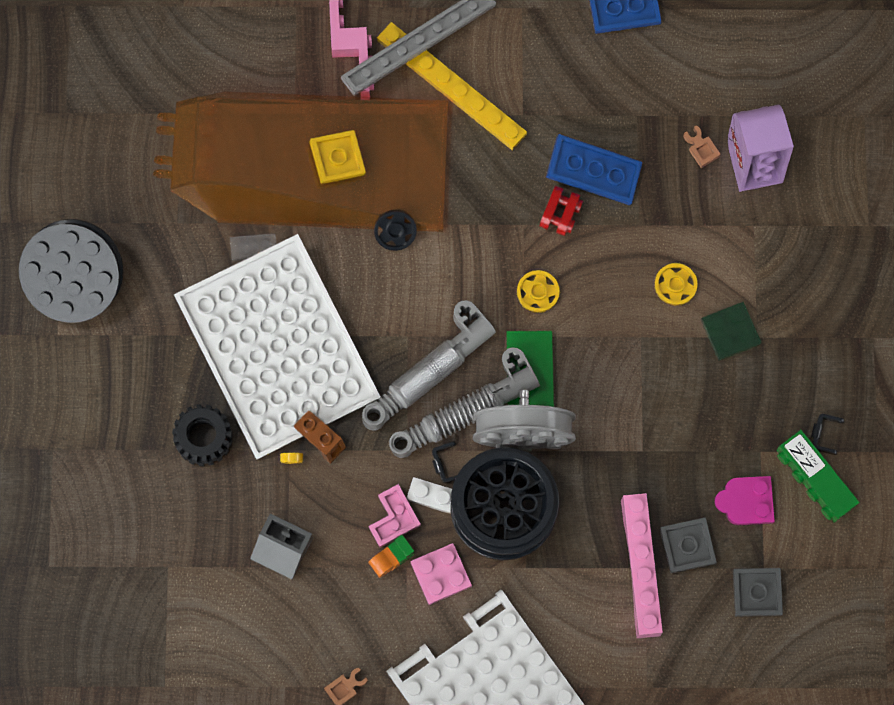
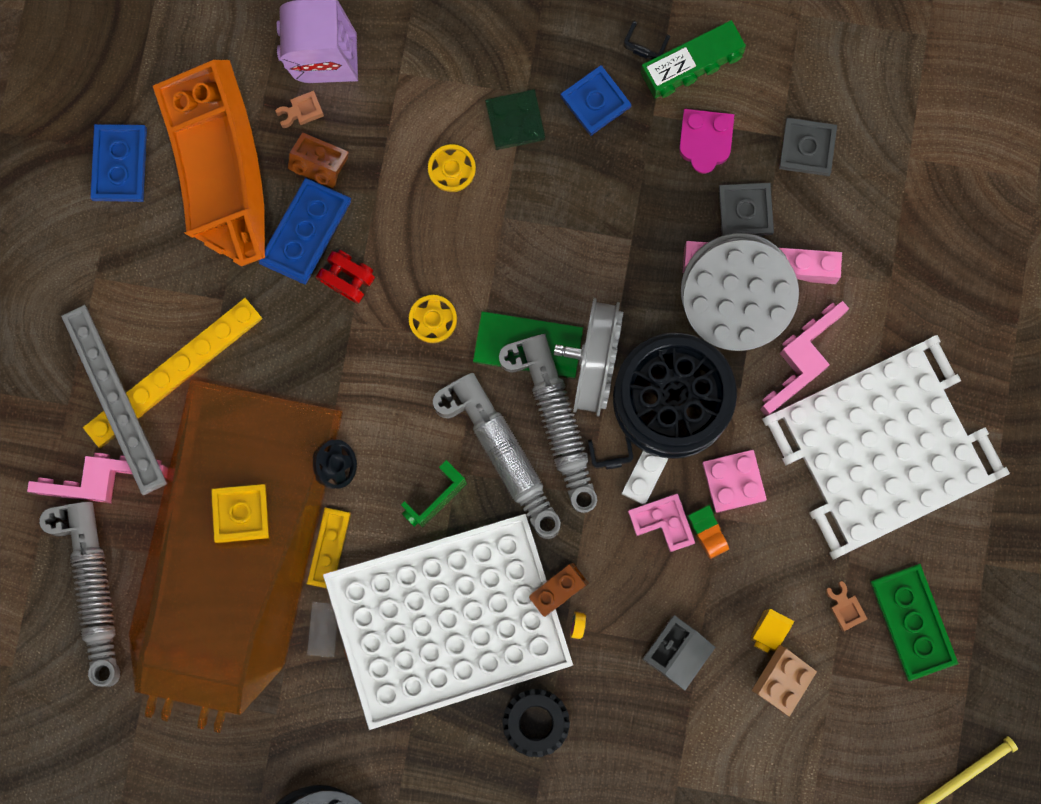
camera: 75 degrees left, 5 degrees up
(271, 641) = (784, 680): none -> medium nougat plate
(279, 47) = (92, 589): none -> light grey piece
(313, 622) = (771, 630): none -> yellow slope
(327, 239) = (328, 545): none -> yellow tile
(395, 333) = (458, 483): none -> green panel
(562, 616) = (803, 357): none -> bright pink bracket
(607, 545) = (739, 291): none -> light grey wheel
(641, 85) = (215, 160): none -> orange slope
(660, 169) = (317, 160): none -> dark orange bracket
(762, 397) = (595, 100): none -> blue plate

